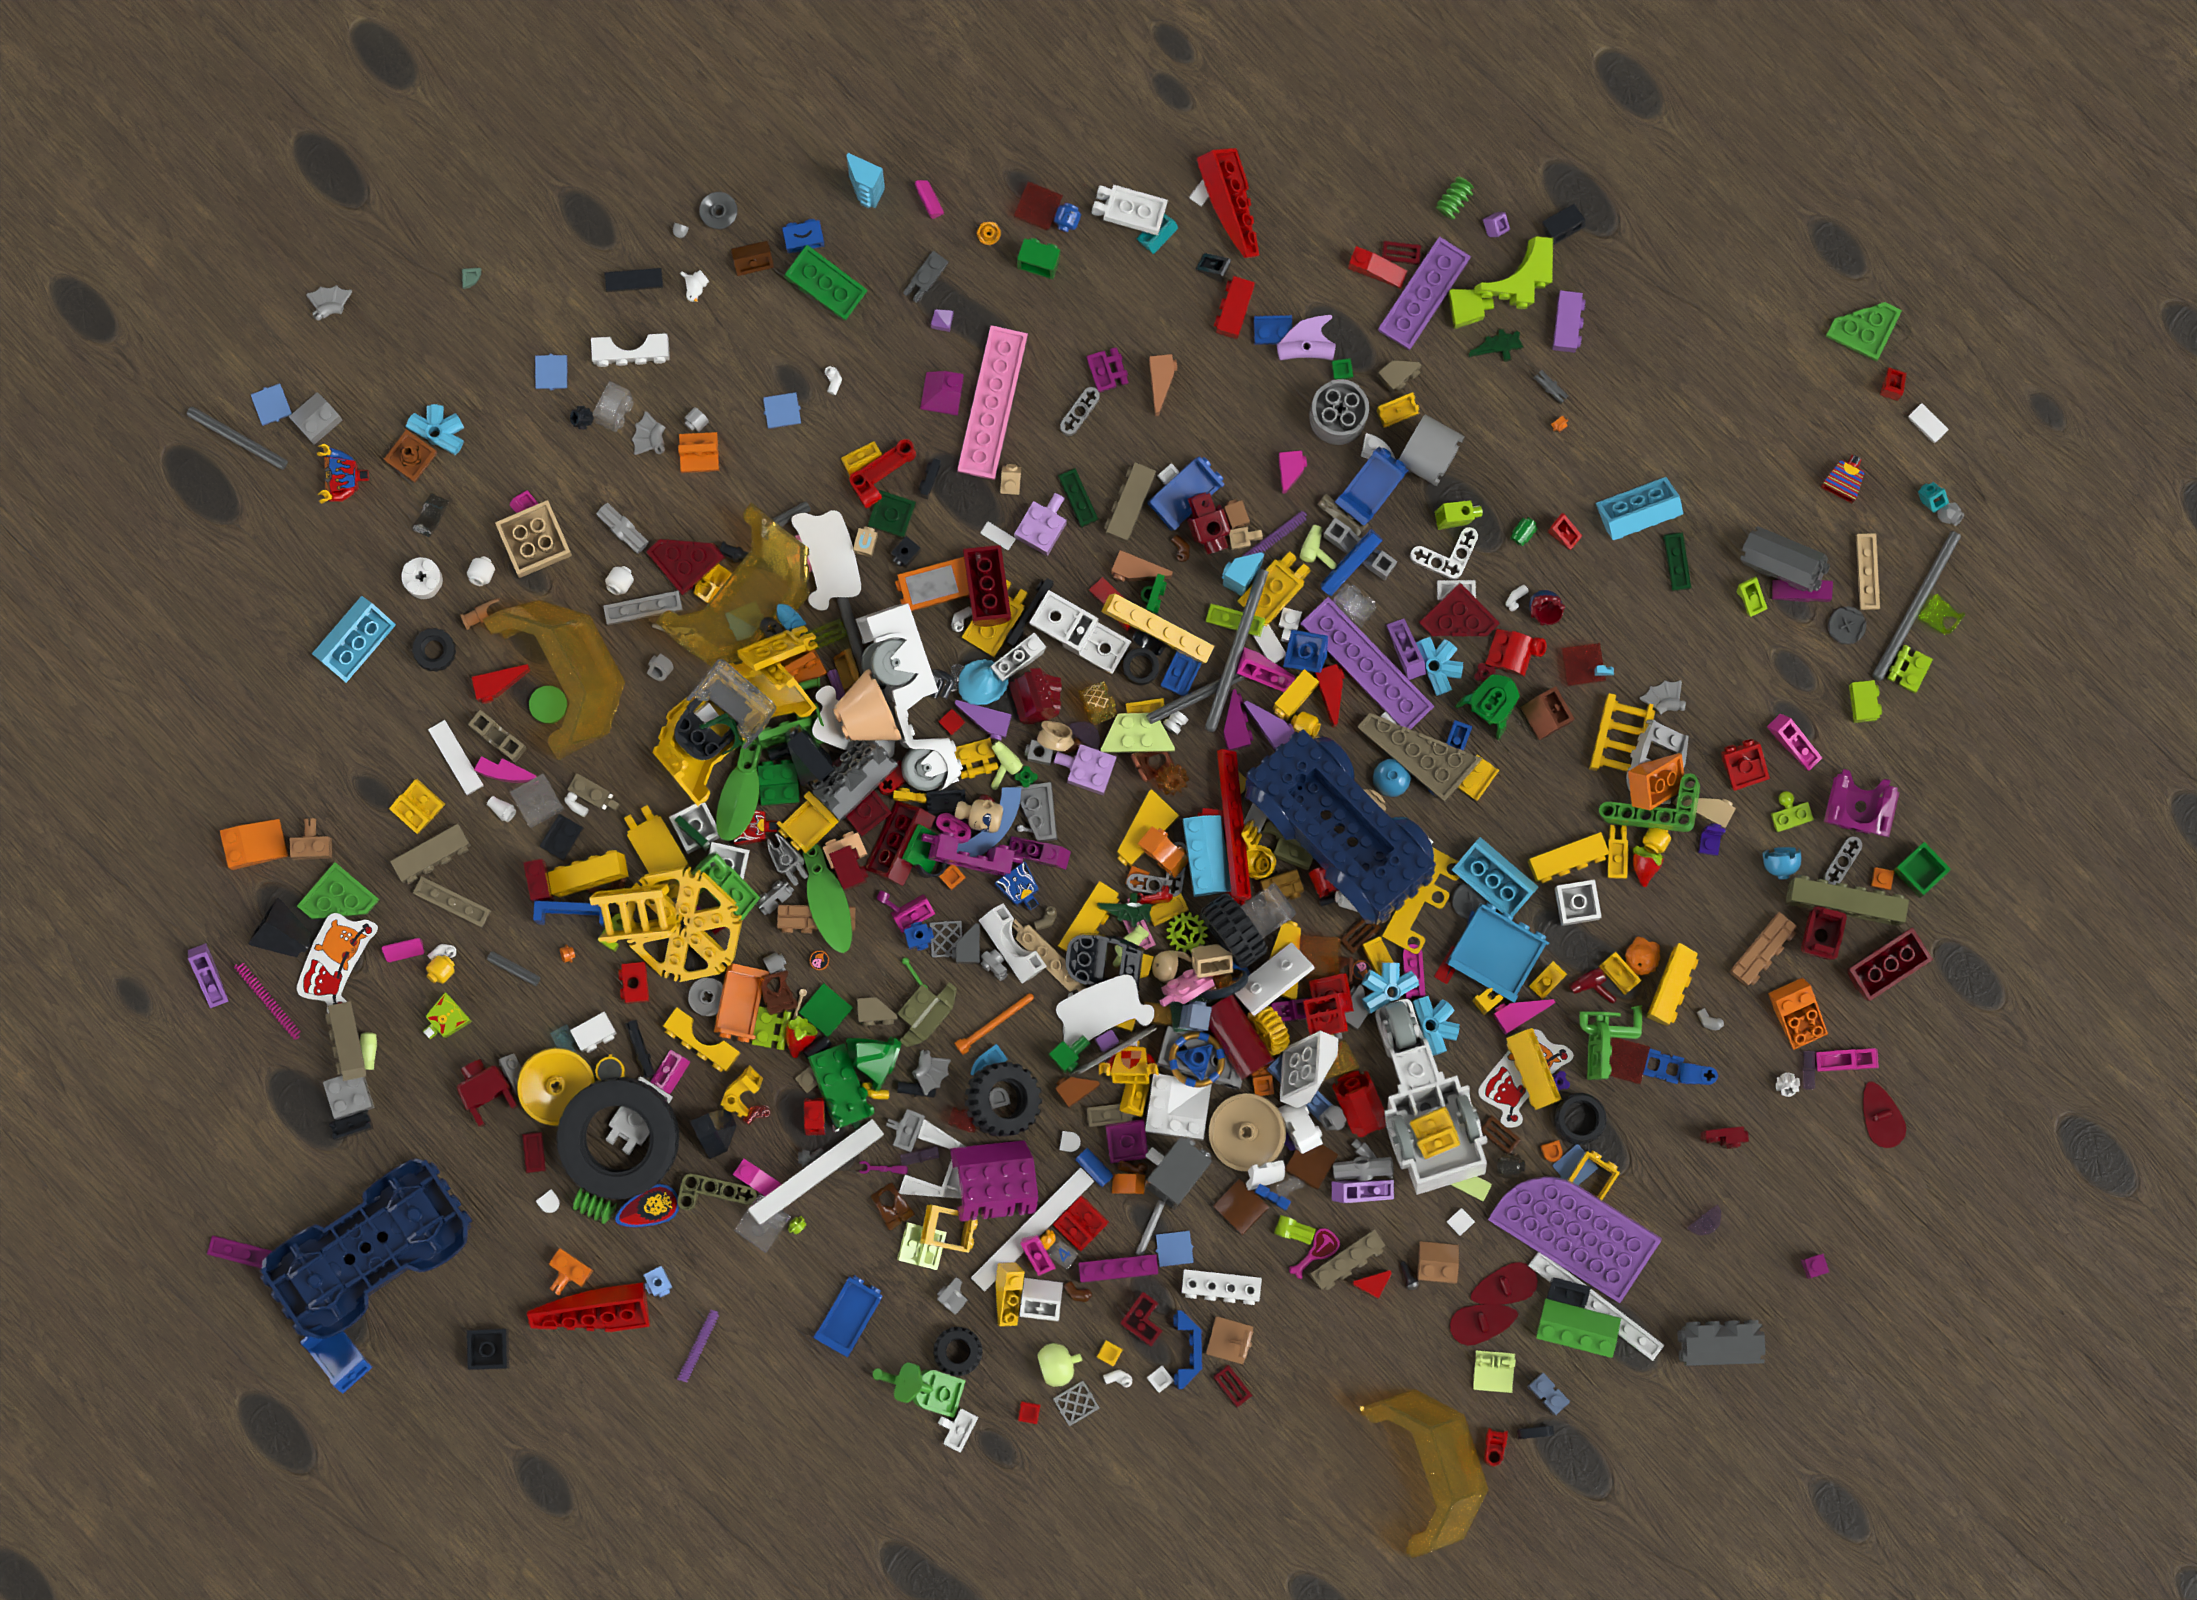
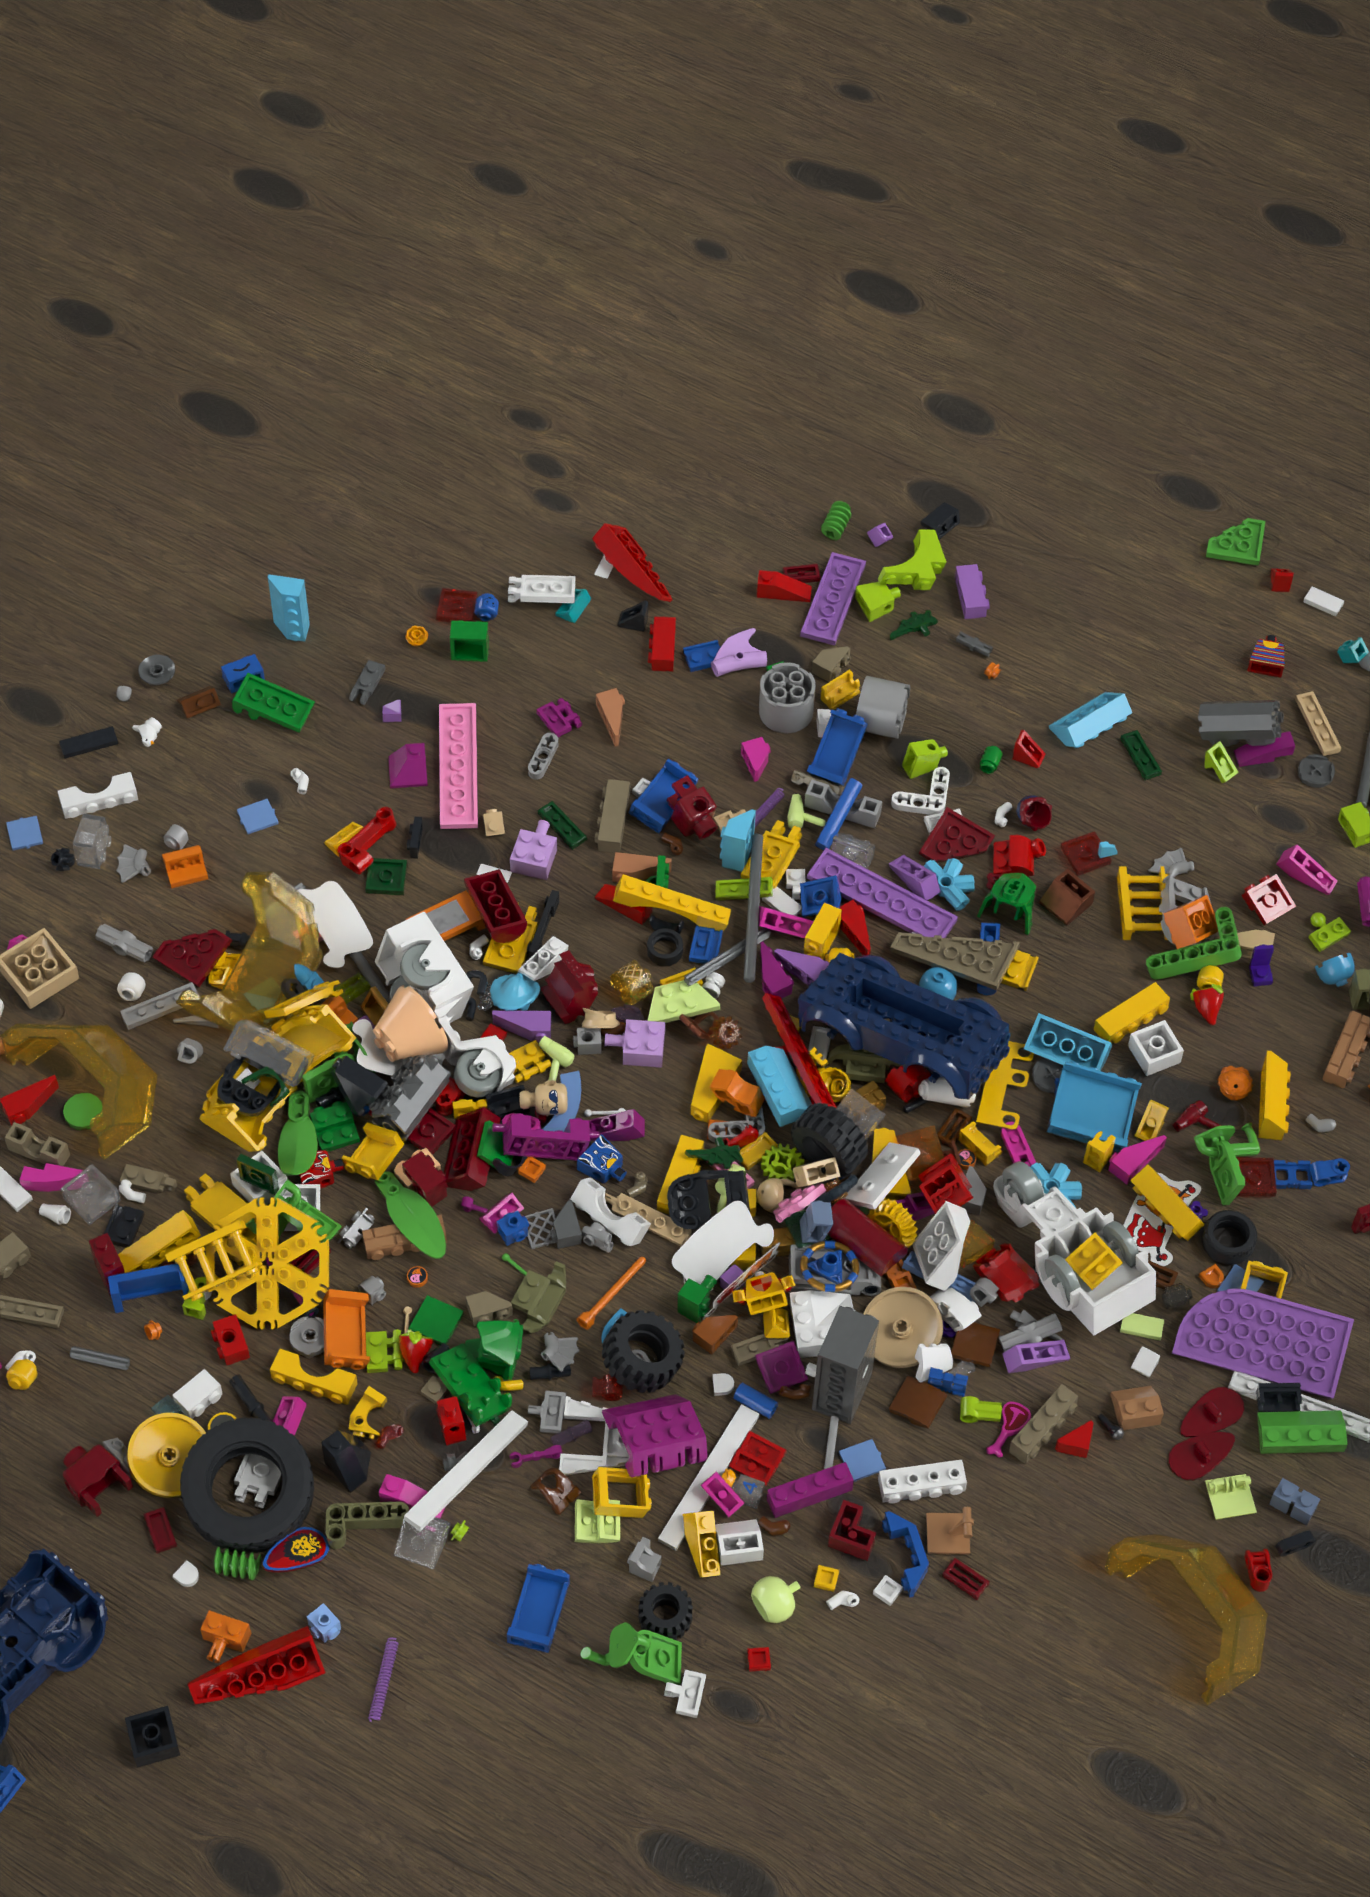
camera: 10 degrees left, 25 degrees down
(445, 1018) = (38, 1419): lime torso -> none
(782, 999) = (388, 1319): copper piece -> none
(786, 859) = (360, 1188): light grey hinge -> none
(865, 542) = (367, 902): tan brick -> none
(905, 552) = (408, 901): black brick -> none
(929, 198) = (352, 622): dark pink slope -> none
(1026, 782) = (581, 1065): green plate -> none
(1039, 810) = (602, 1089): light grey wing -> none
(1080, 632) = (597, 927): white bracket -> none
(1089, 1395) = (785, 1637): light grey window -> none
(1128, 1184) = (795, 1404): orange slope -> none
(1236, 514) = (721, 800): medium nougat brick -> none
(1380, 985) = (994, 1155): medium azure piece -> none
(1445, 971) = (1048, 1140): red sticker -> none
(1618, 856) = (1178, 1004): yellow hinge -> none
(1620, 973) = (1220, 1101): yellow hinge -> none

